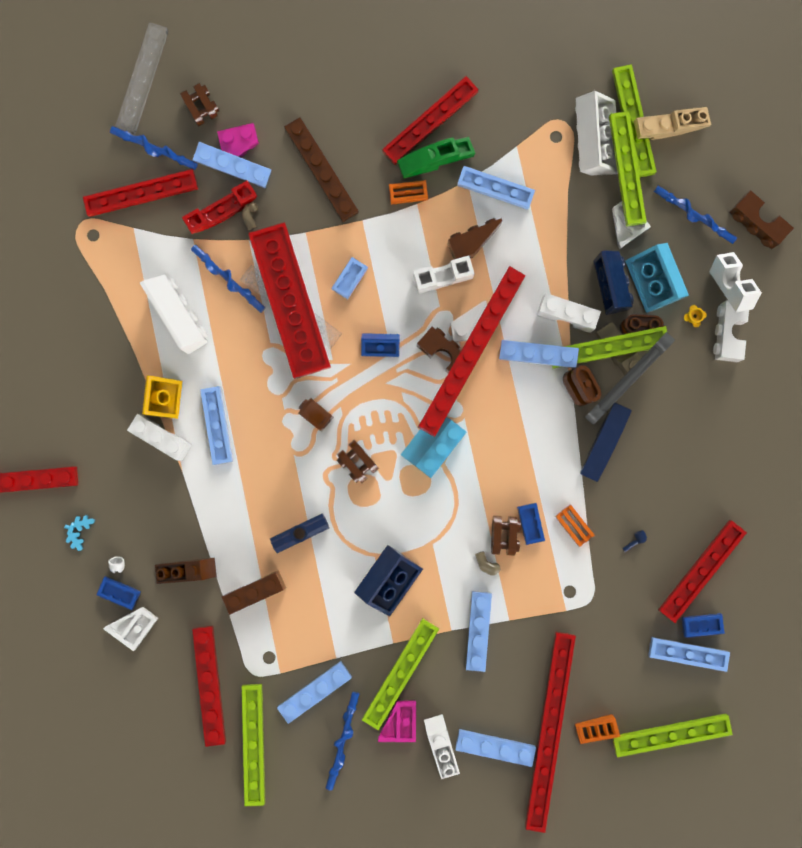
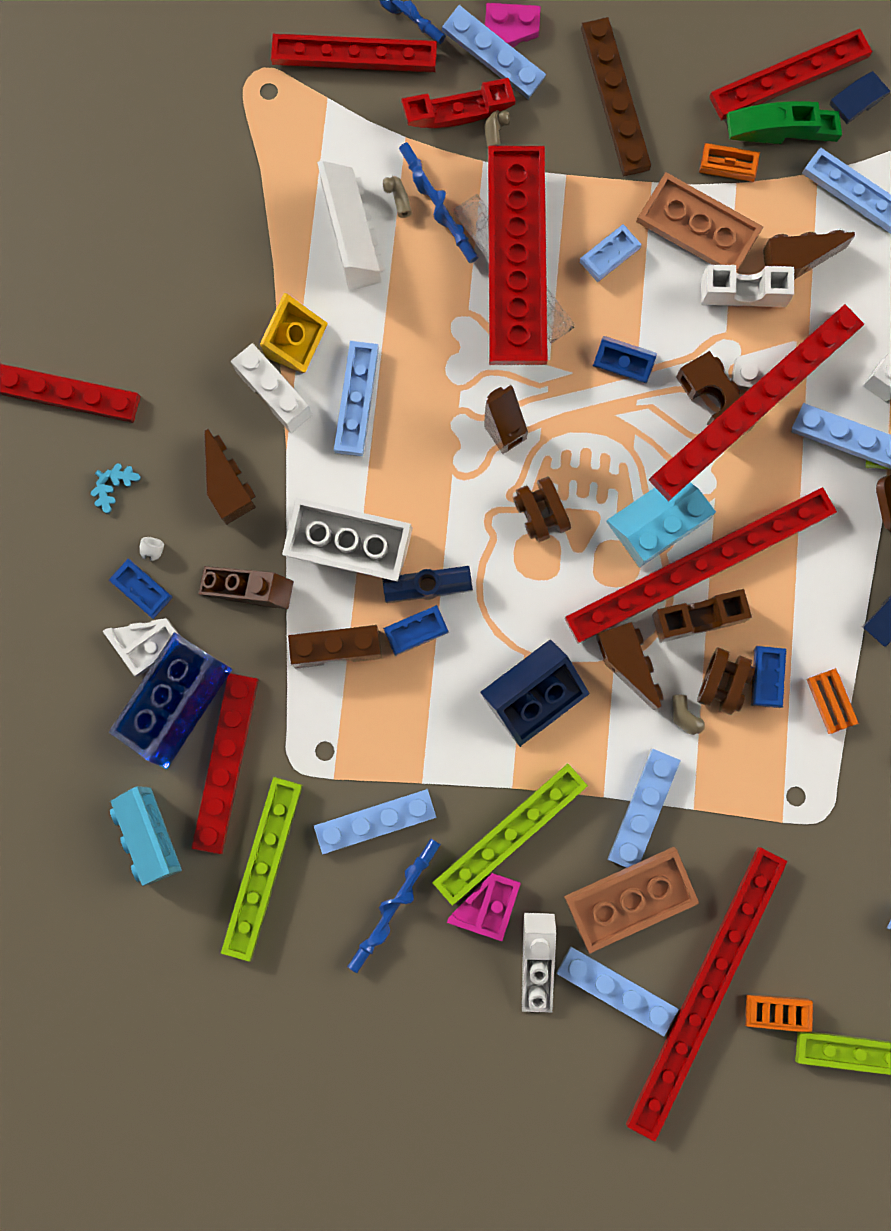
camera: 20 degrees right, 5 degrees down
(149, 509) = (223, 486): none -> reddish brown slope
(161, 660) = (170, 701): none -> clear blue slope
(174, 749) = (144, 835): none -> medium azure slope
(202, 281) = (400, 196): none -> dark tan arm
(239, 522) = (347, 539): none -> white slope
(301, 564) = (416, 630): none -> blue plate
(401, 241) = (698, 223): none -> nougat plate
(438, 541) = (625, 657): none -> reddish brown slope
(467, 466) = (700, 565): none -> red plate
(477, 499) = (700, 617): none -> reddish brown arch
(479, 122) = (859, 97): none -> dark blue slope
(487, 691) = (631, 899): none -> nougat plate

